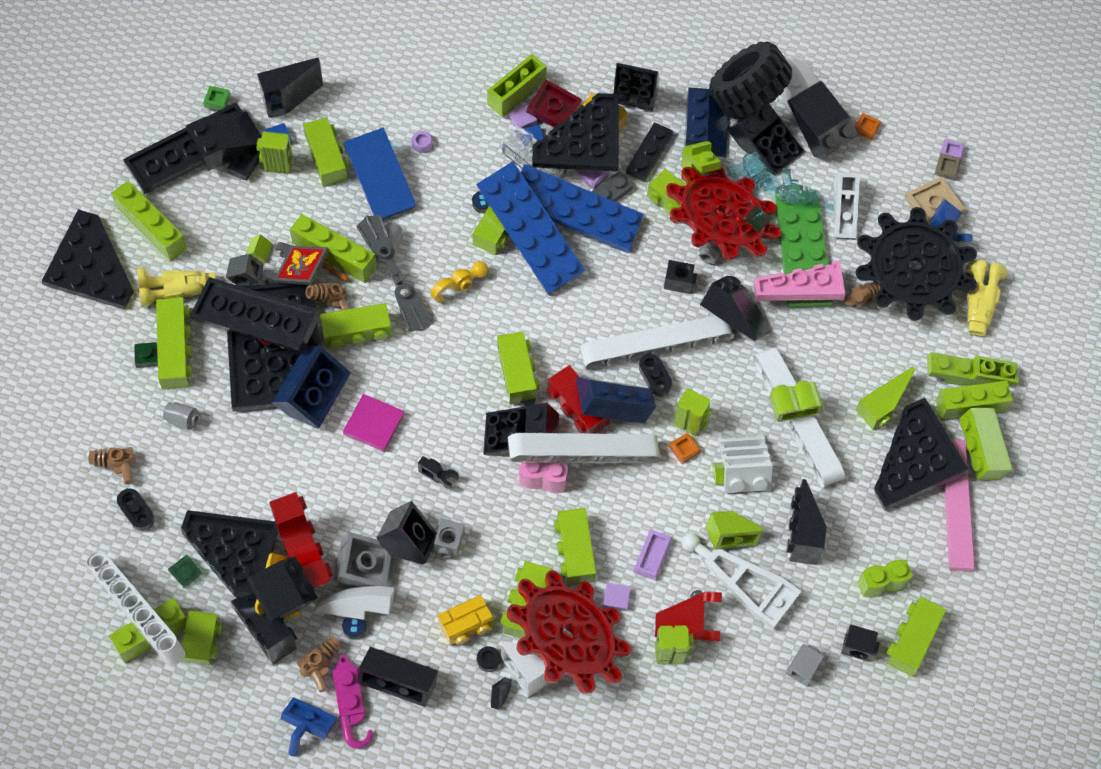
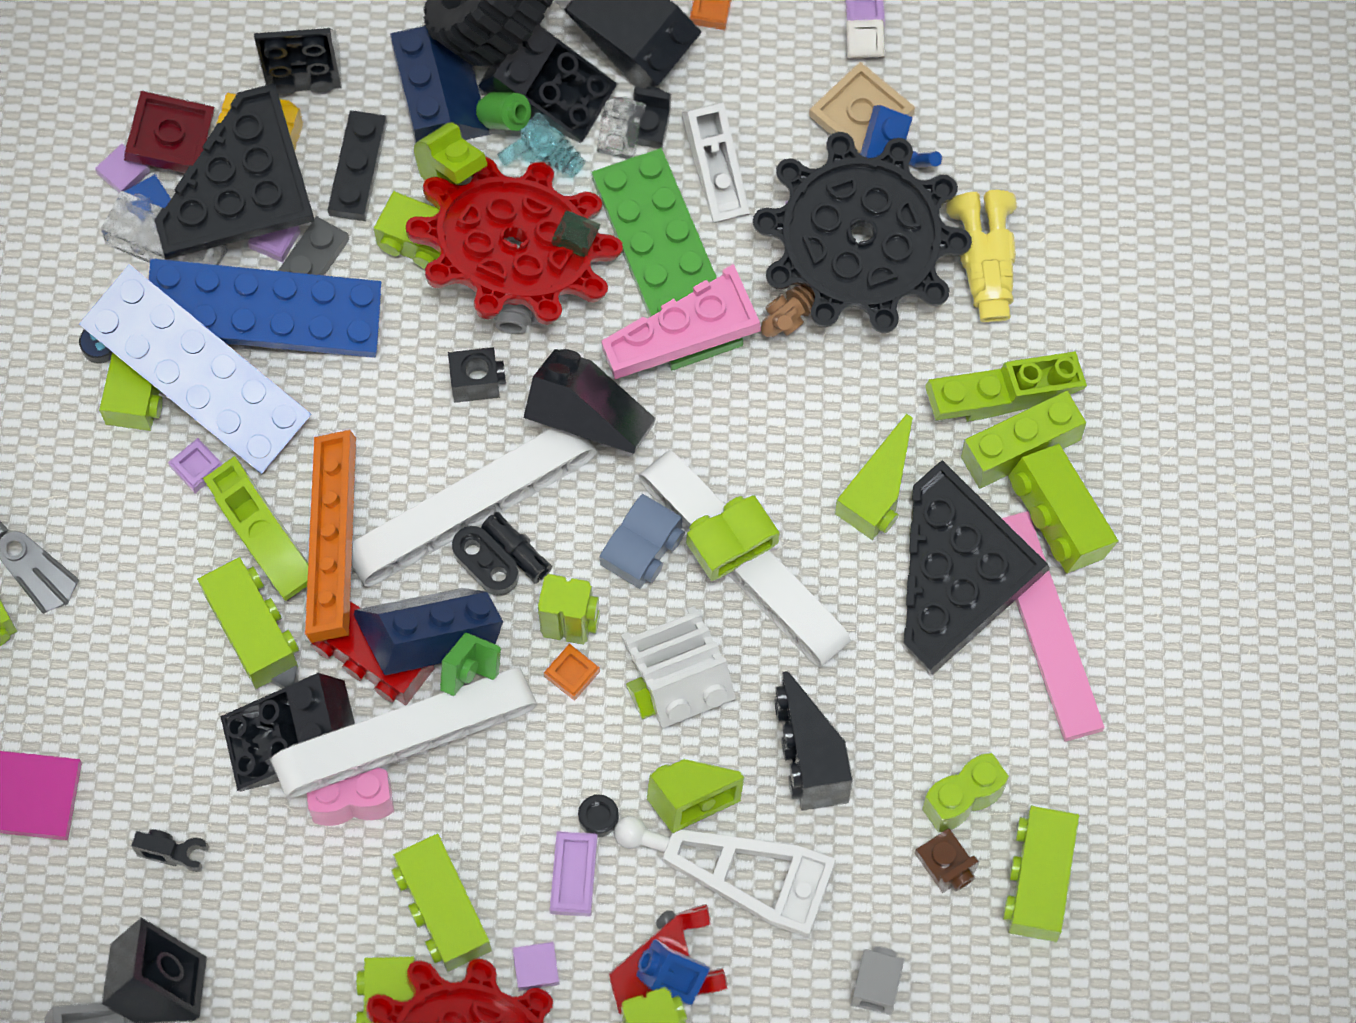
camera: 15 degrees left, 5 degrees up
(449, 529) = (220, 942): light grey brick -> none
(460, 280) = (104, 497): yellow piece -> none
(514, 279) = (194, 464): none -> lavender tile
(516, 85) = (93, 116): lime brick -> none
(538, 321) = (258, 527): none -> lime slope
(575, 335) = (331, 536): none -> orange plate
(630, 420) = (466, 659): none -> bright green bracket
(674, 372) = (517, 546): none -> black pin
(676, 528) = (598, 815): none -> black tile
(696, 623) = (670, 969): none -> blue bracket
(737, 145) = (504, 111): none -> bright green brick
(744, 390) = (642, 541): none -> sand blue brick
(794, 193) = (623, 167): clear light blue piece -> none
(801, 168) = (620, 127): none -> clear bracket
(816, 172) = (656, 115): none -> black bracket
(860, 643) = (957, 915): black brick -> none
(863, 612) = (947, 862): none -> reddish brown bracket

